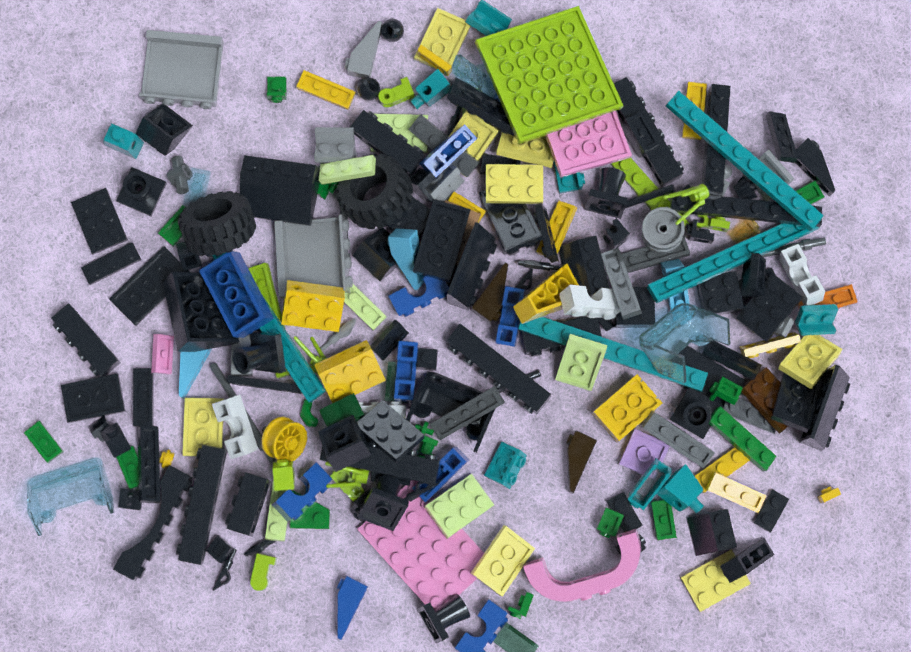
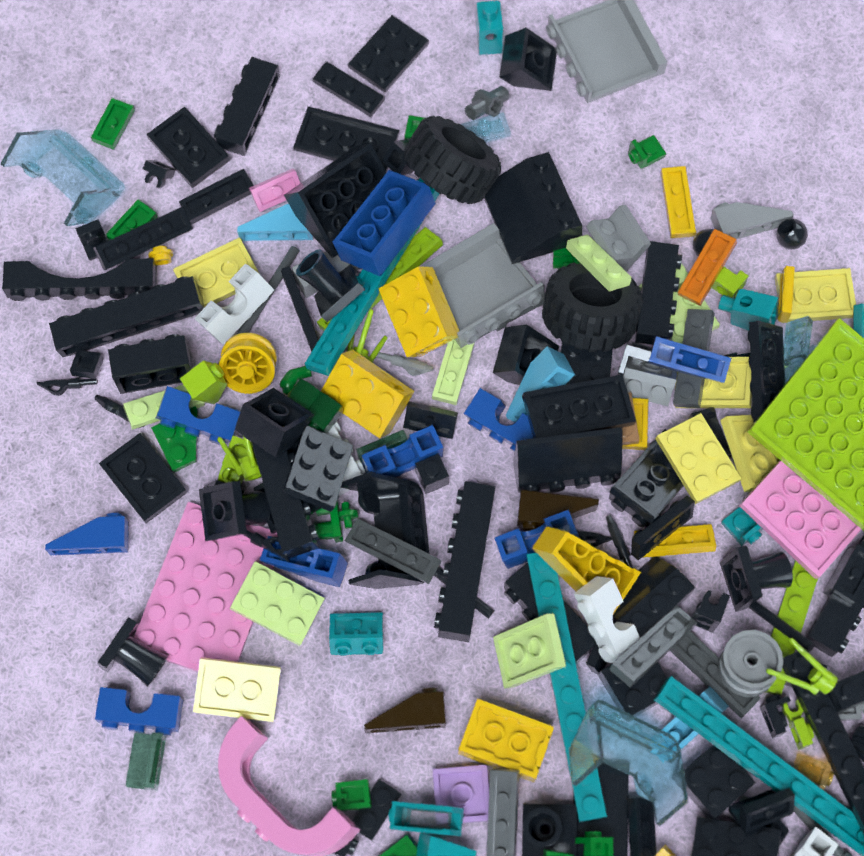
camera: 65 degrees right, 10 degrees down
(115, 440) = (152, 189): black brick -> none
(145, 199) = (445, 73): black plant -> none
(260, 571) = (83, 421): lime leg -> none
(323, 551) = (143, 478): none -> black plate
(387, 100) = (707, 267): none -> orange plate
(524, 603) = (199, 745): green bracket -> none

